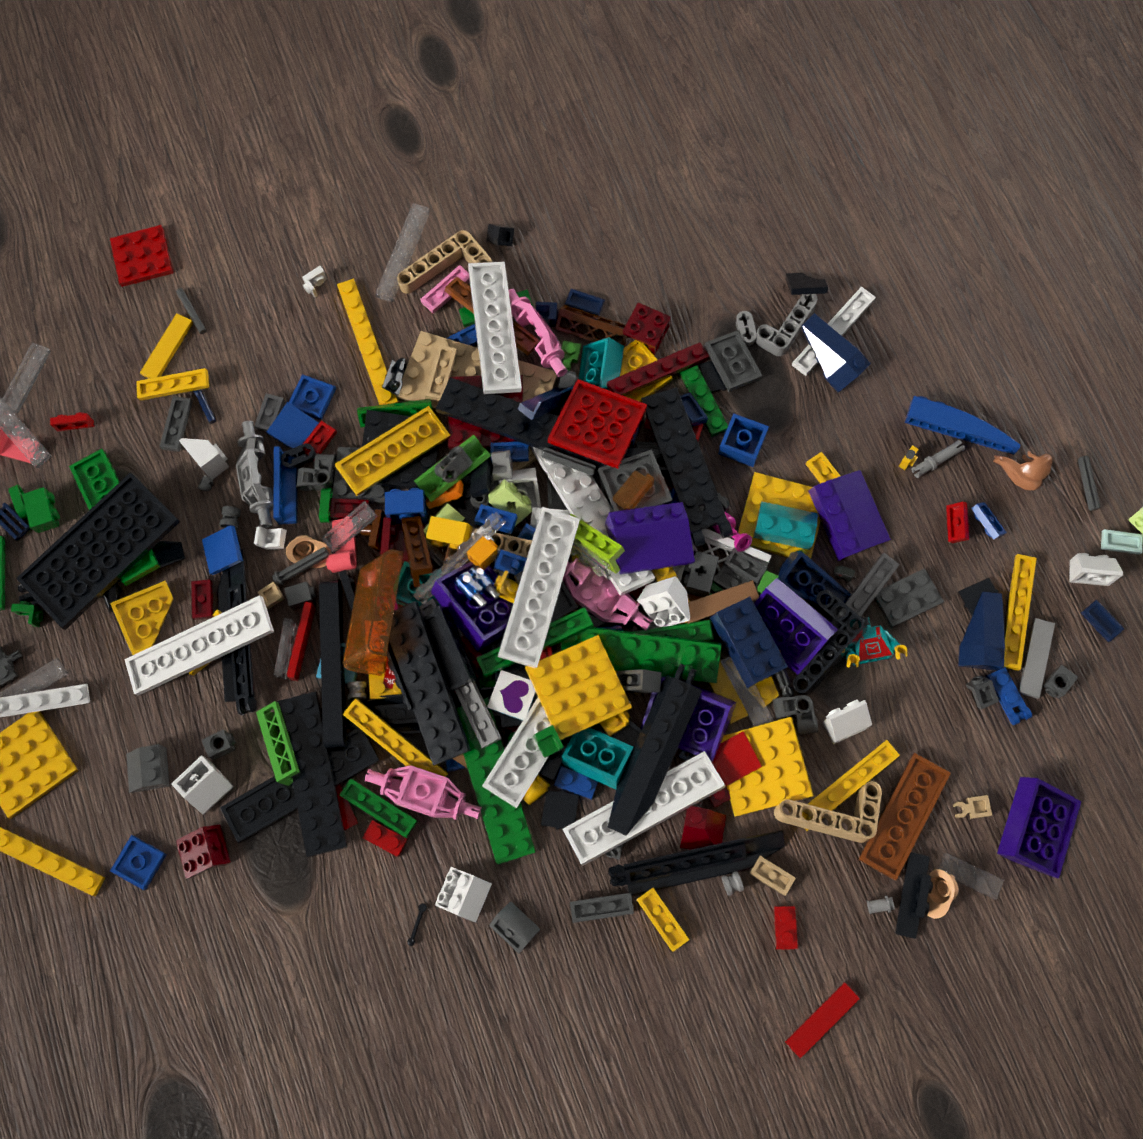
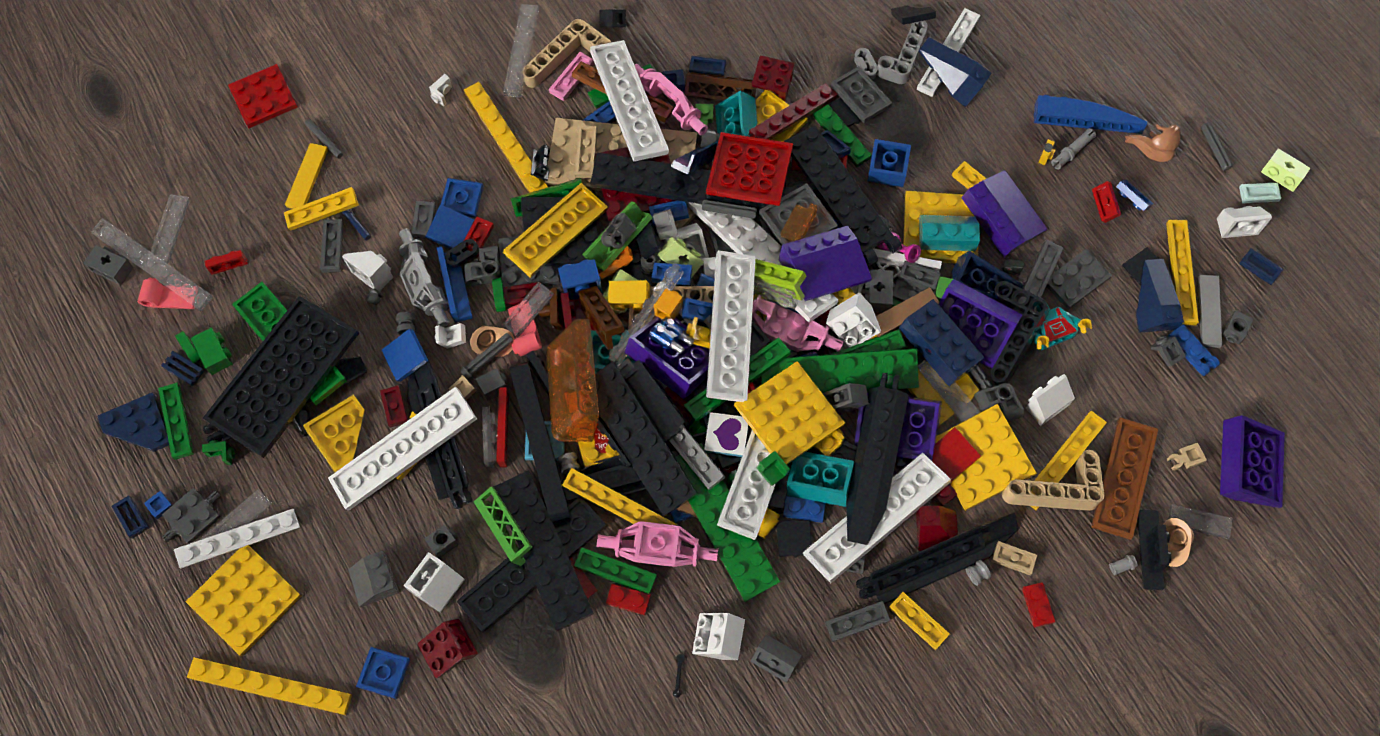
camera: 15 degrees left, 5 degrees down
(821, 1020) = (1094, 684): red tile -> none

